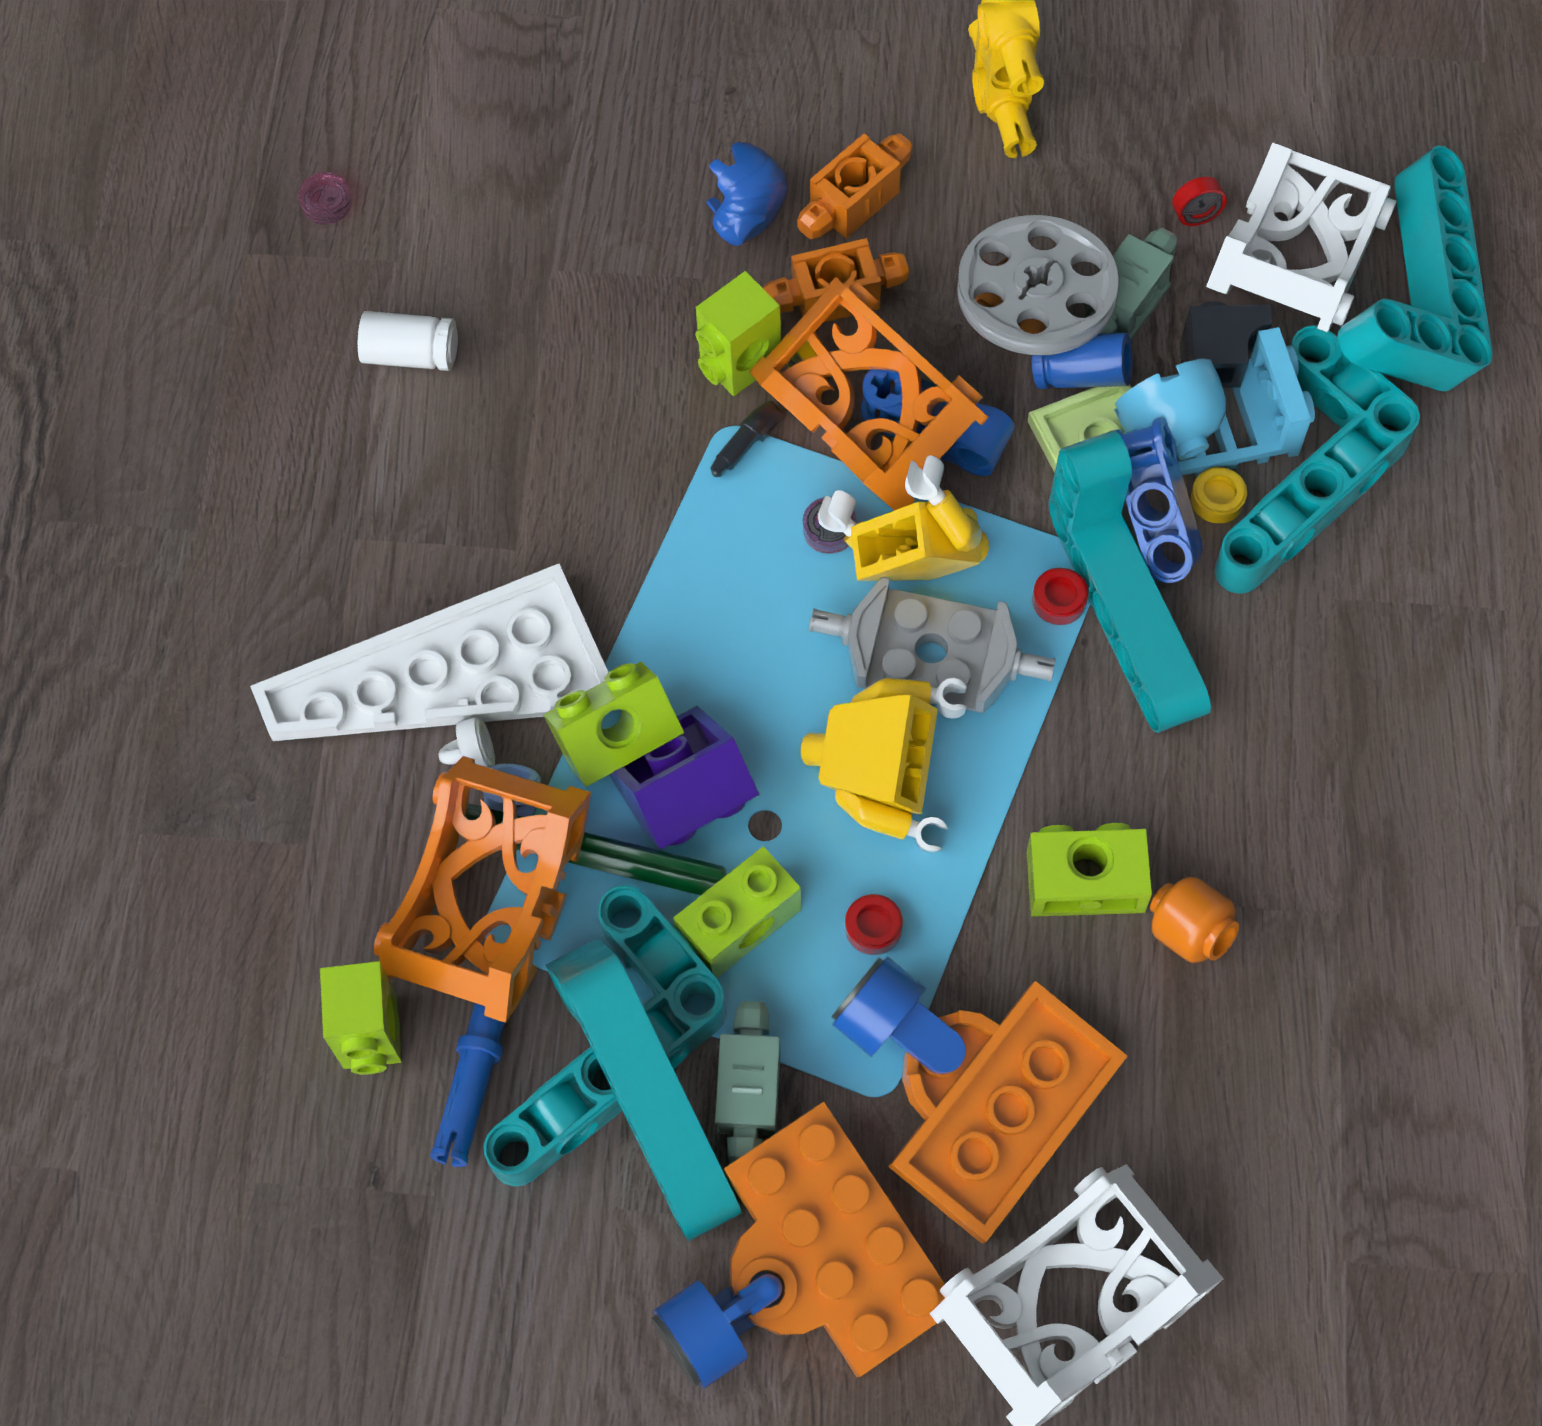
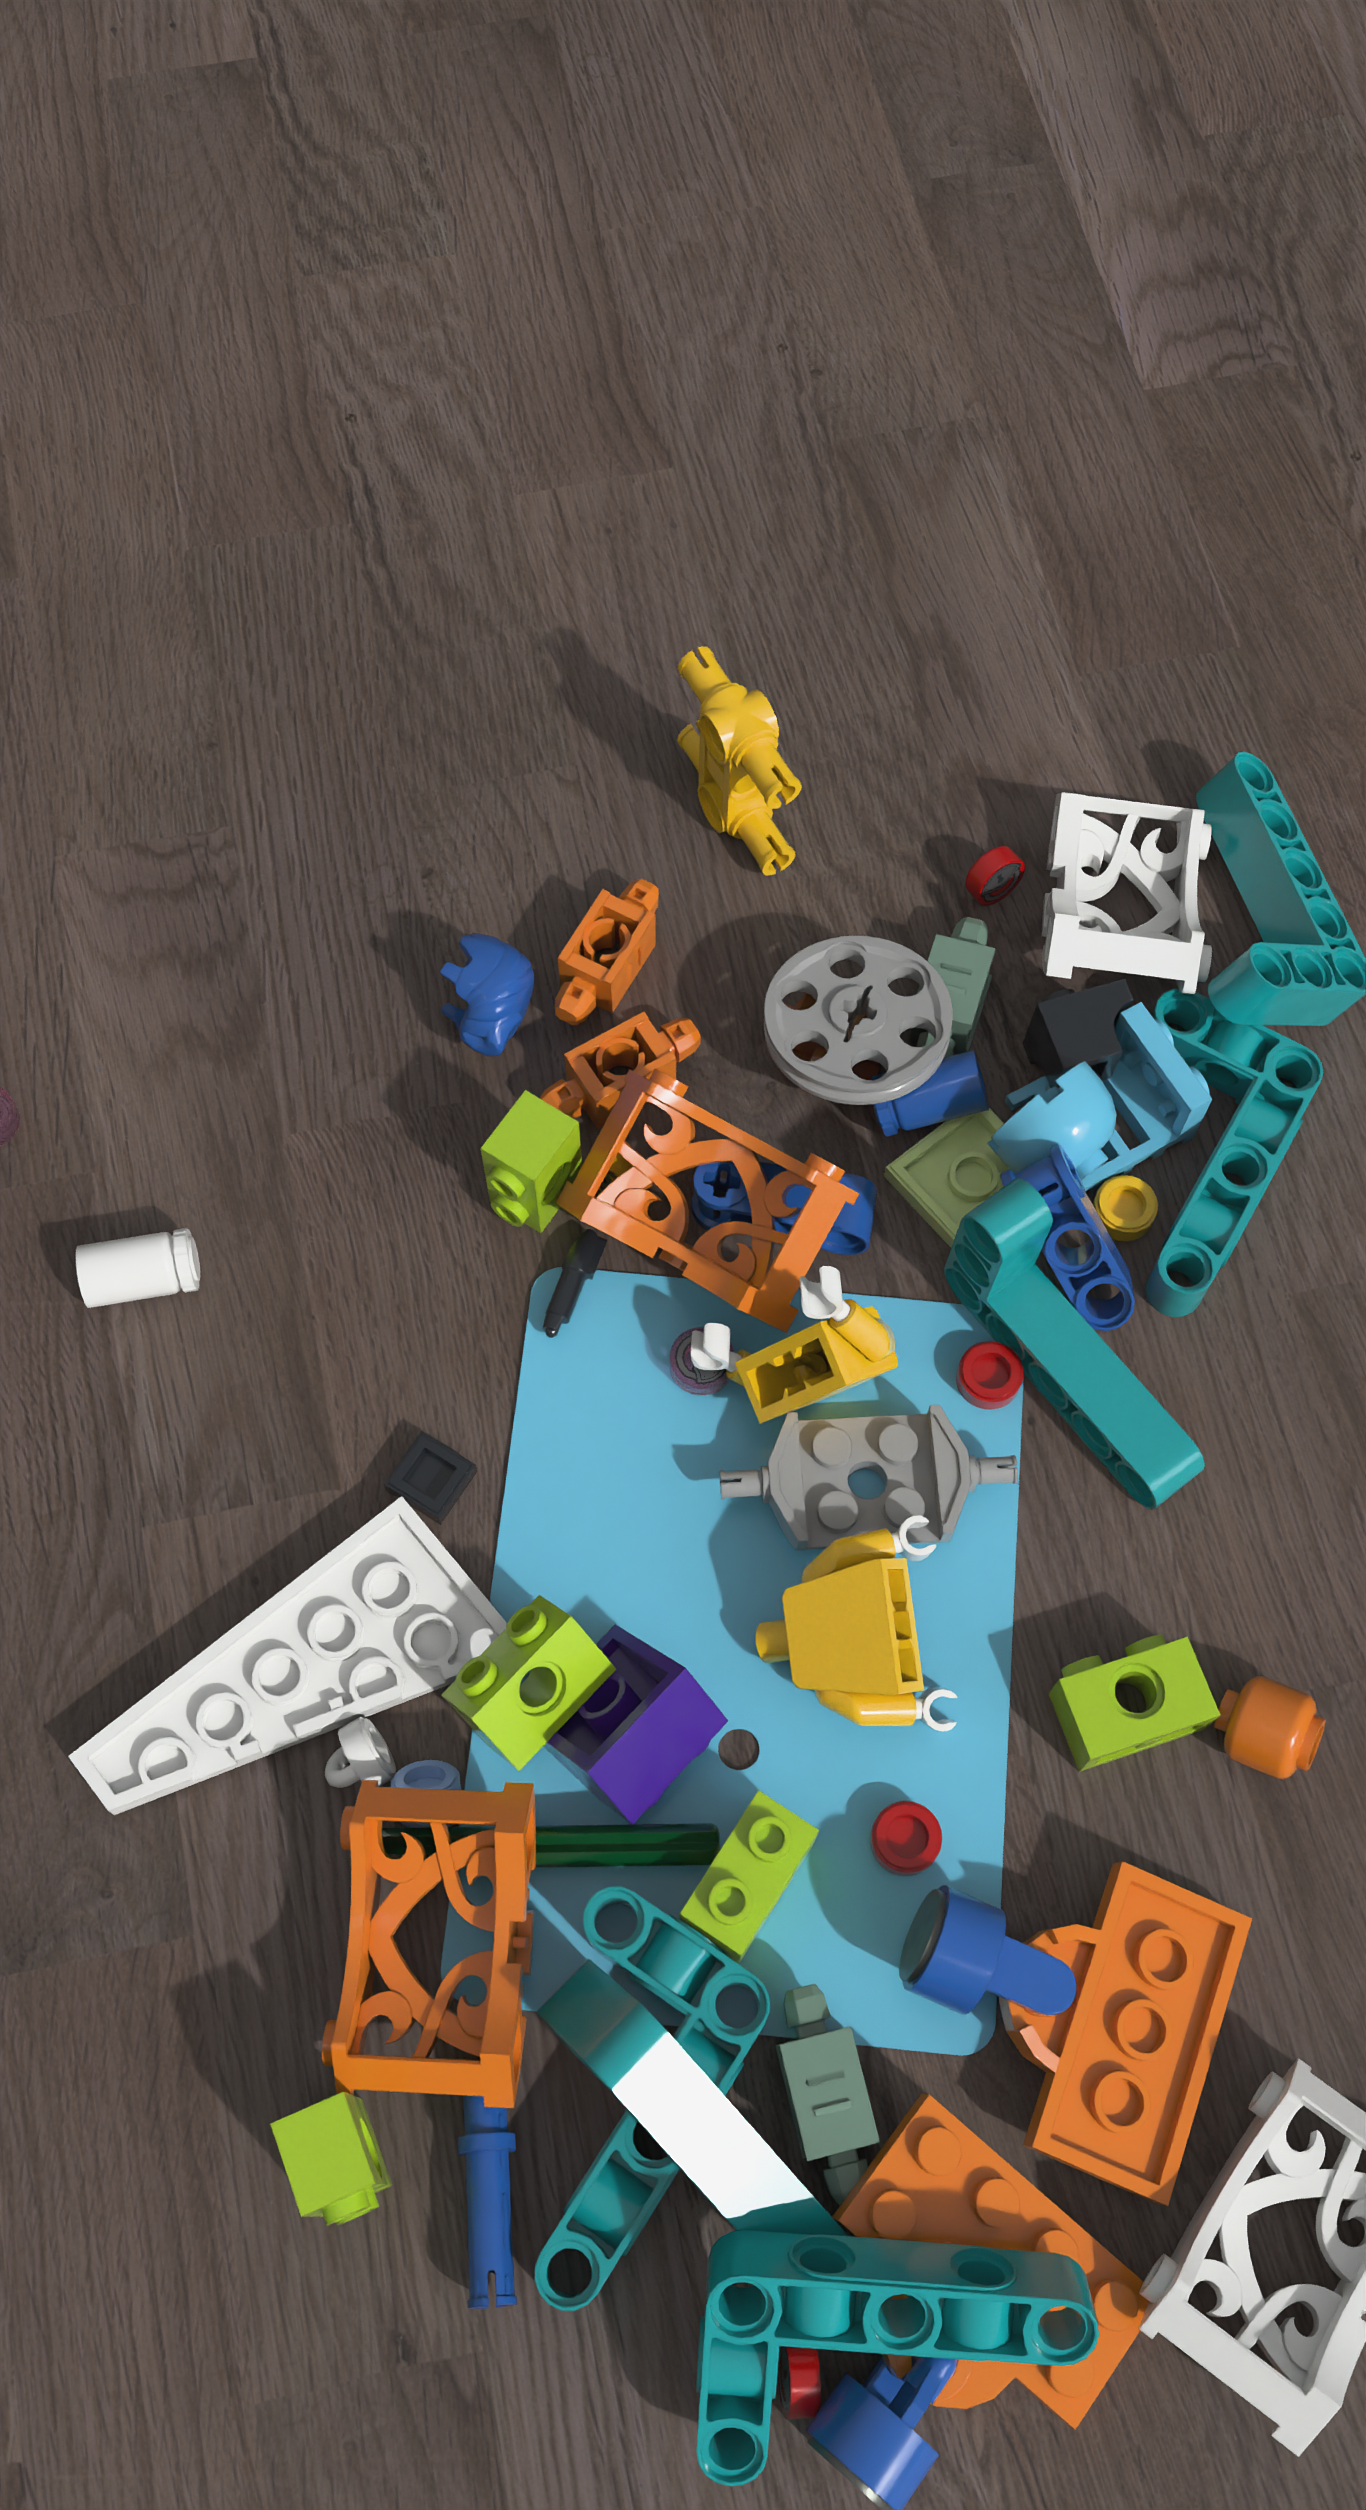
camera: 20 degrees left, 0 degrees up
(588, 559) = (431, 1477): none -> black tile
(662, 1275) = (799, 2382): none -> red tile
(701, 1212) = (836, 2297): none -> teal beam

